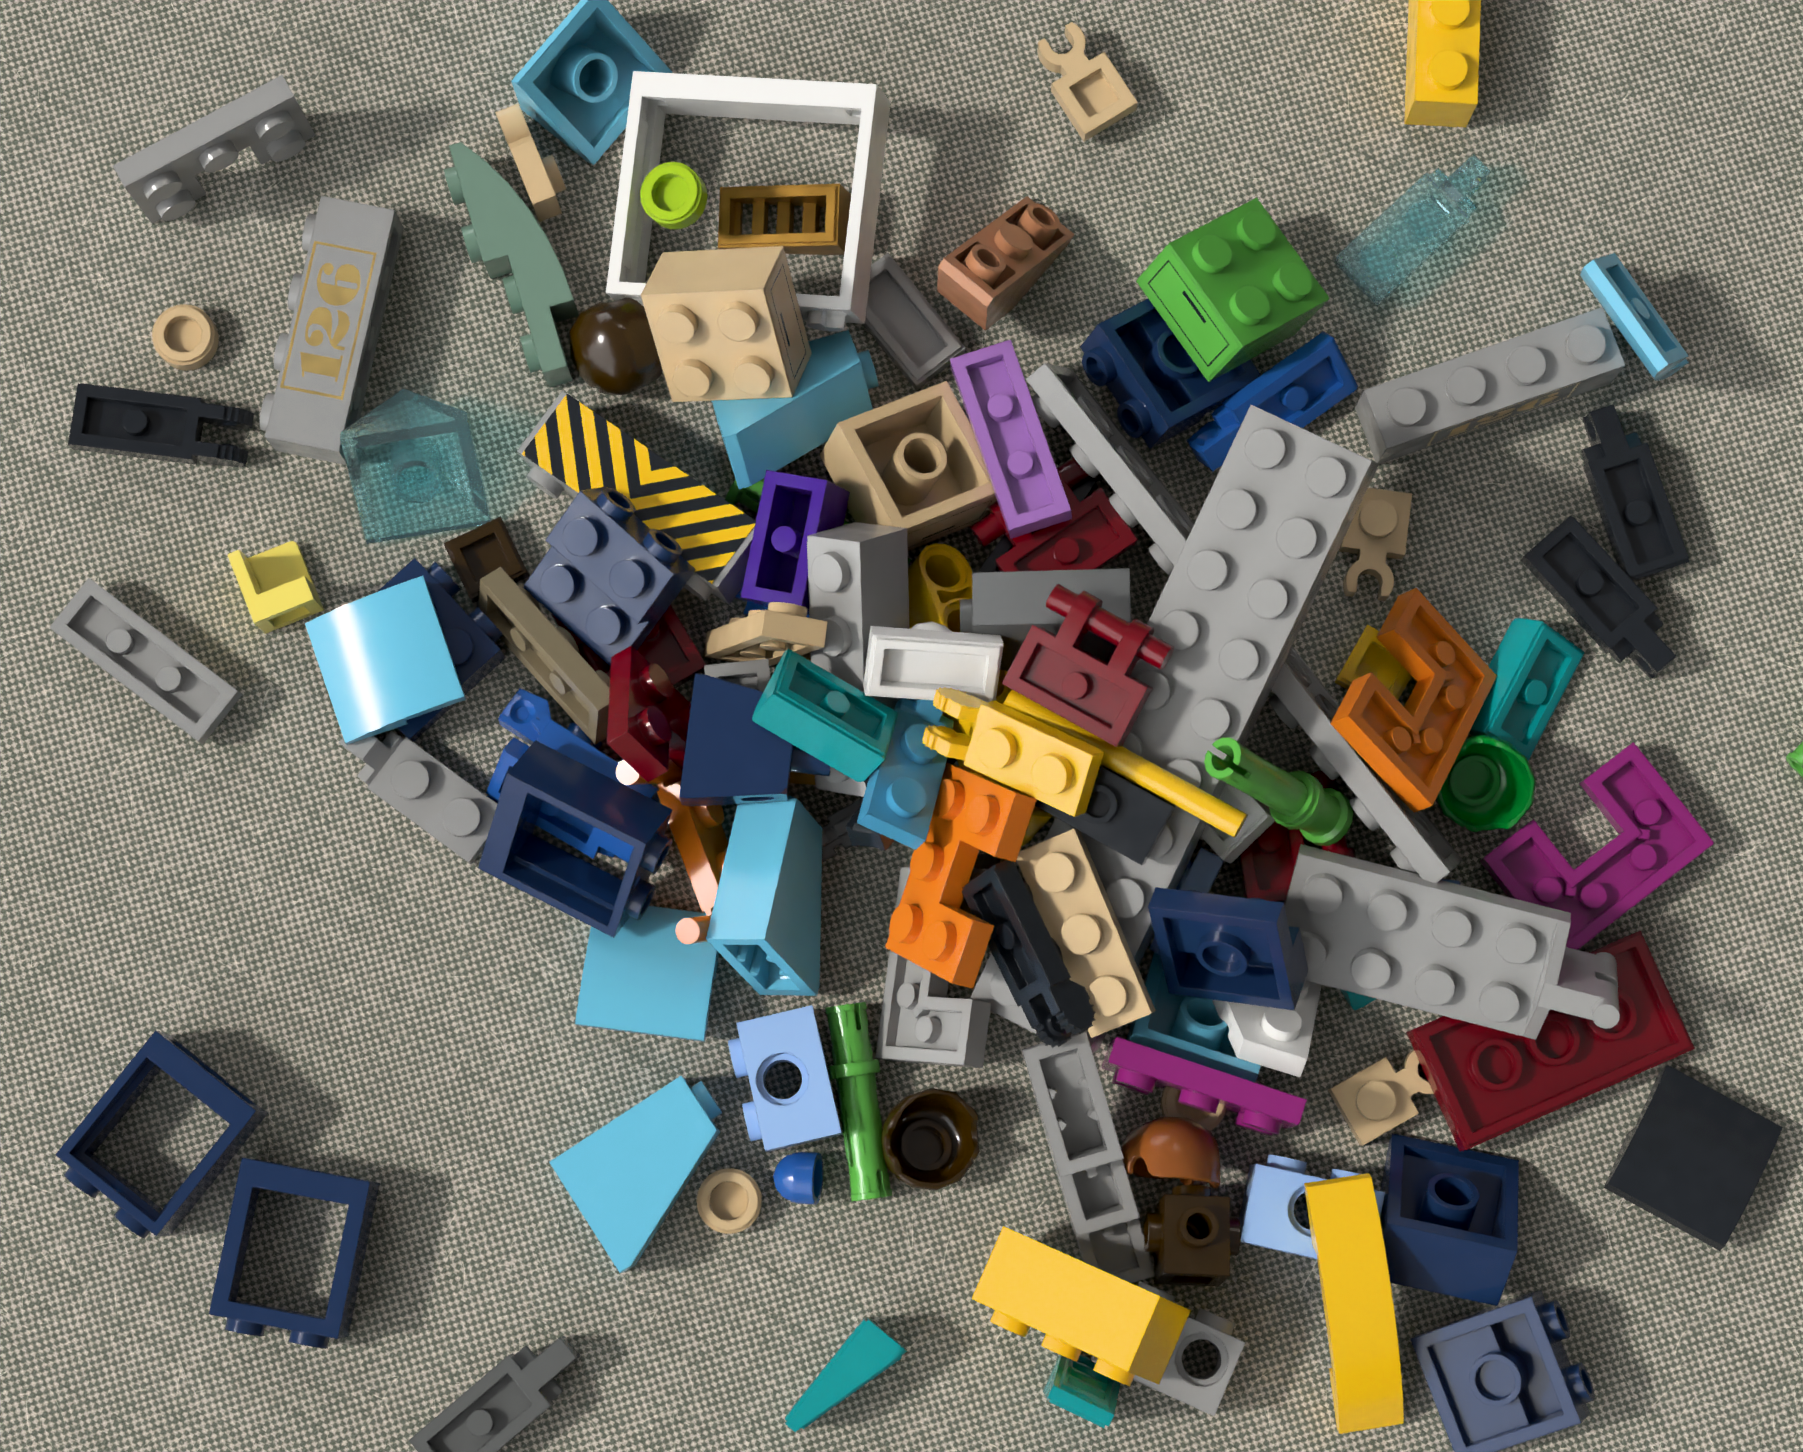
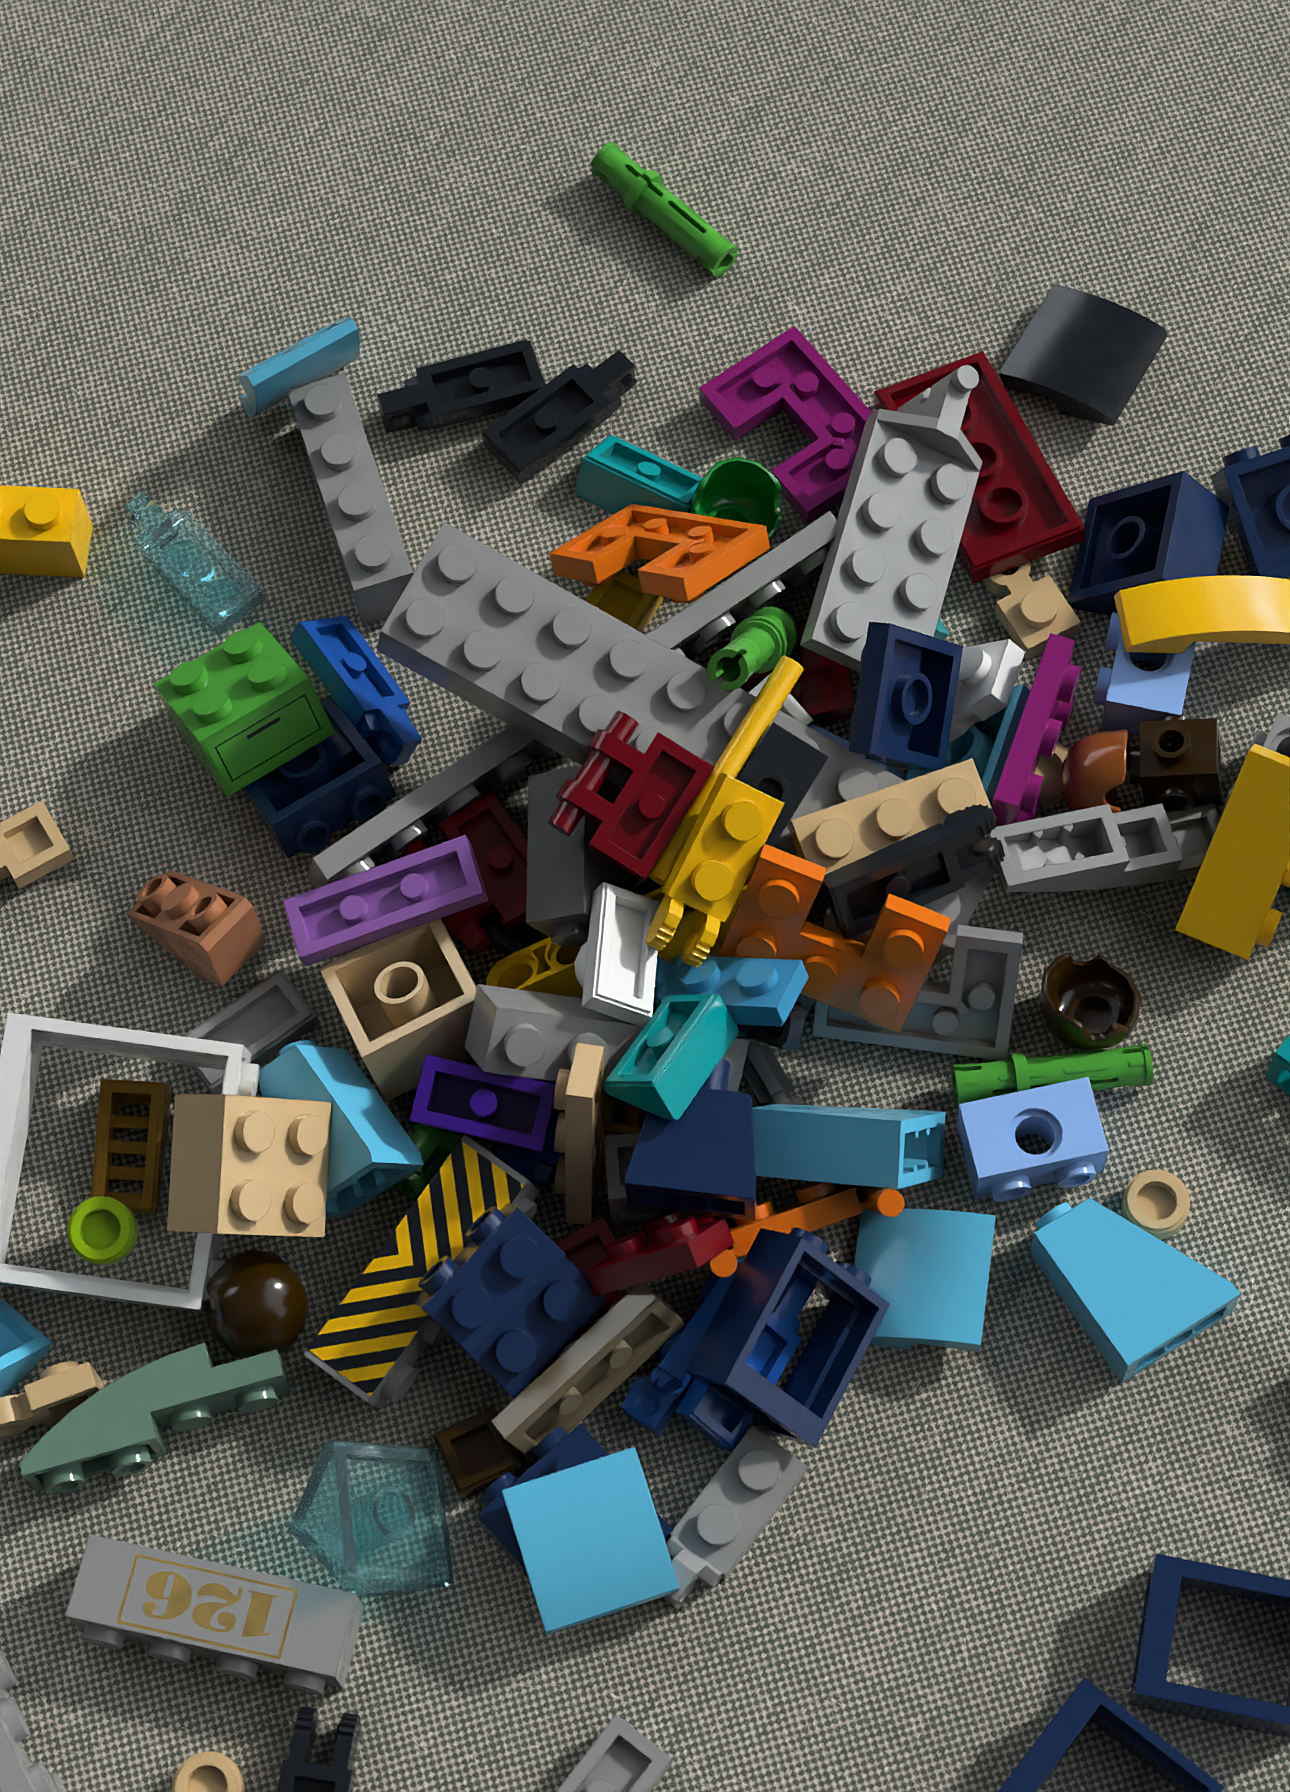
camera: 85 degrees left, 15 degrees down
(276, 586) = (497, 1678): light yellow panel -> none
(800, 1177) = (1130, 1132): blue hinge -> none

